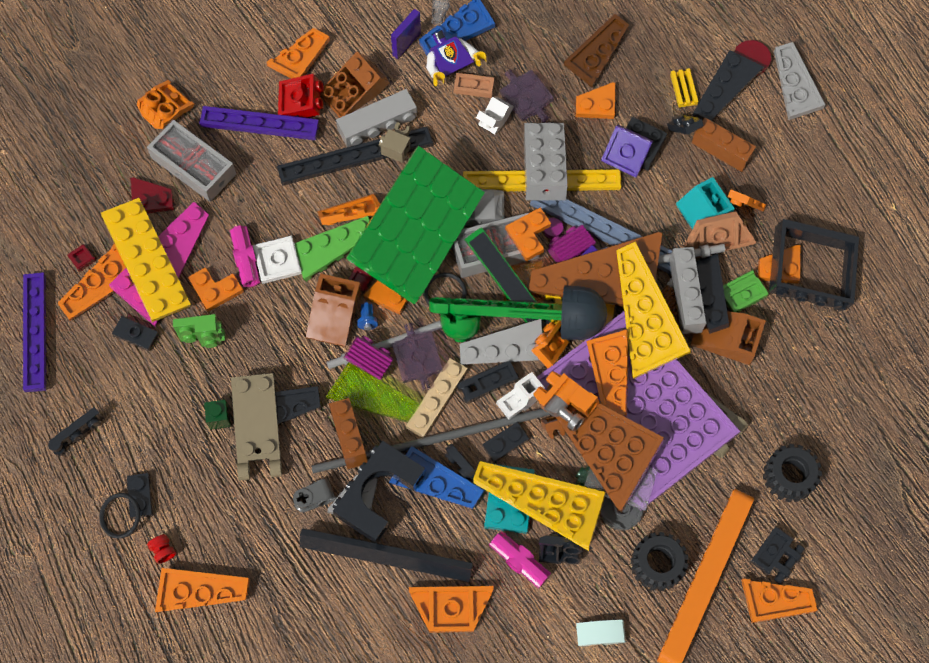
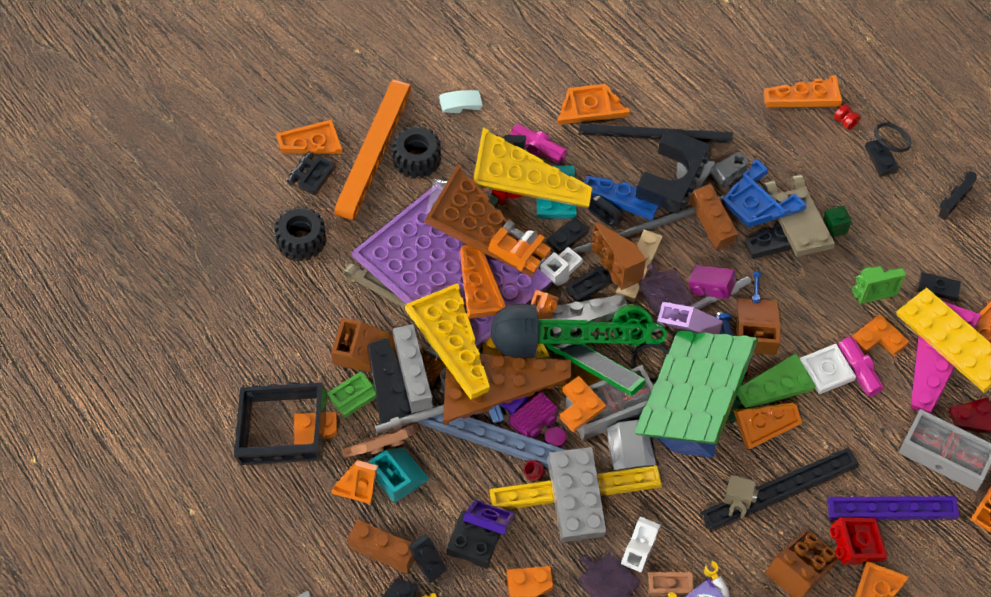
camera: 170 degrees right, 10 degrees down
(302, 446) = (755, 205): none -> blue wing
(317, 371) = (756, 298): none -> blue hinge
(371, 394) = (689, 255): clear neon green wing -> none
(376, 118) = (767, 528): light grey brick -> none
(403, 309) = (688, 319): none -> lavender slope
(459, 383) = (618, 256): none -> dark orange slope
(578, 195) = (534, 470): none -> dark red plate

